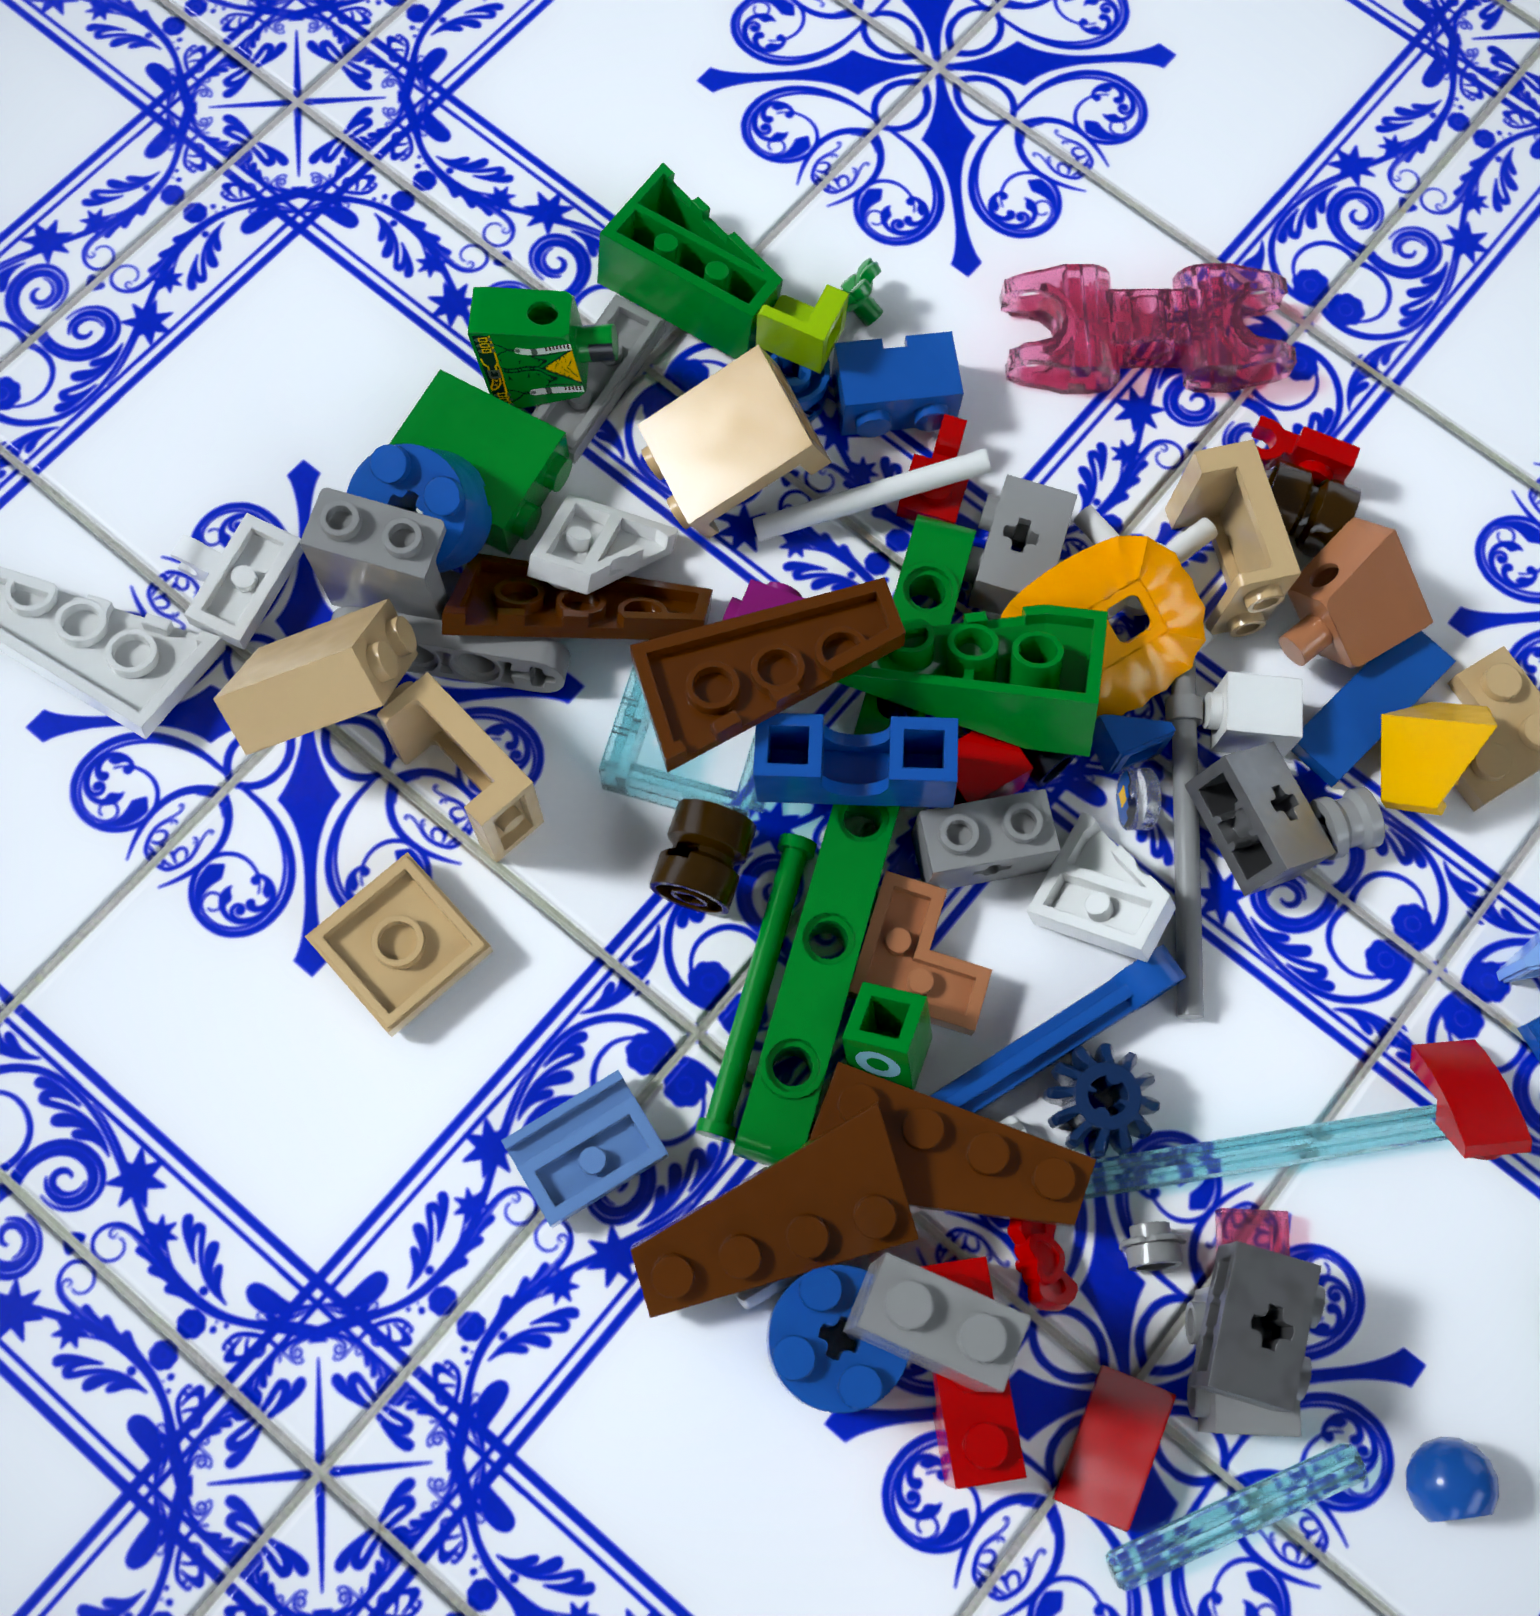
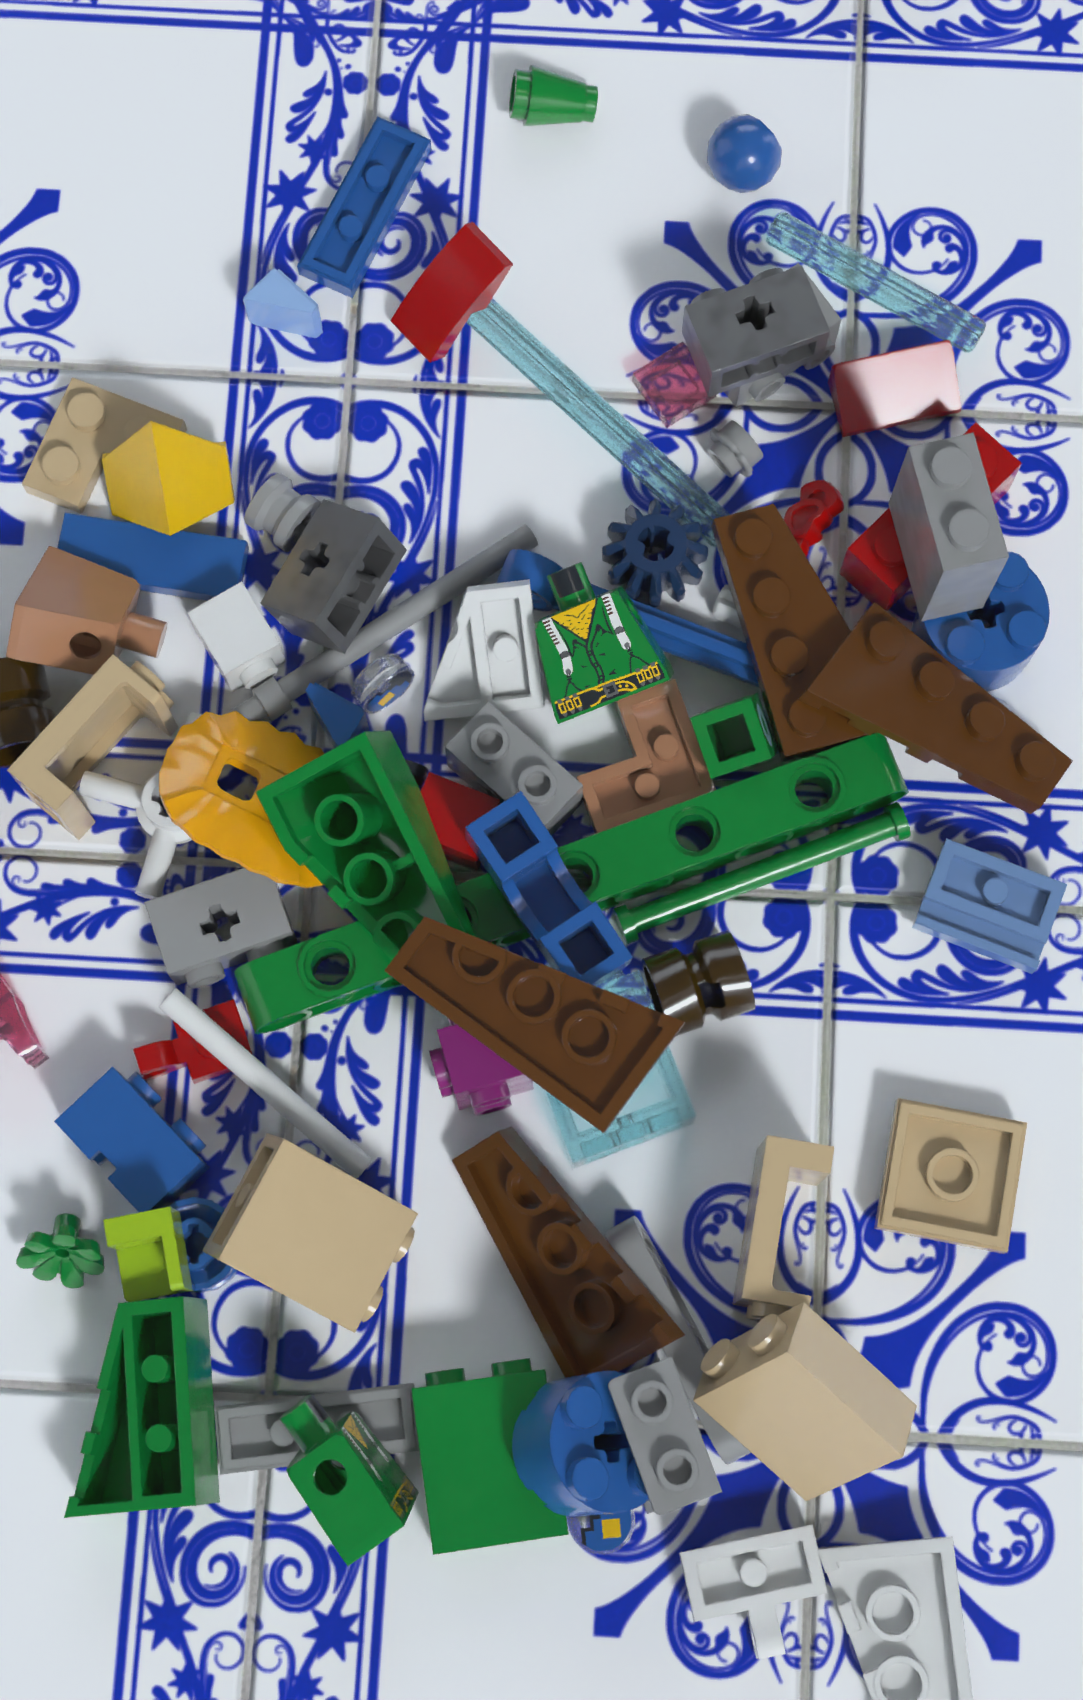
camera: 120 degrees left, 5 degrees up
(596, 545) = (492, 1285): white wing -> none
(1047, 977) = (595, 647): none -> torso

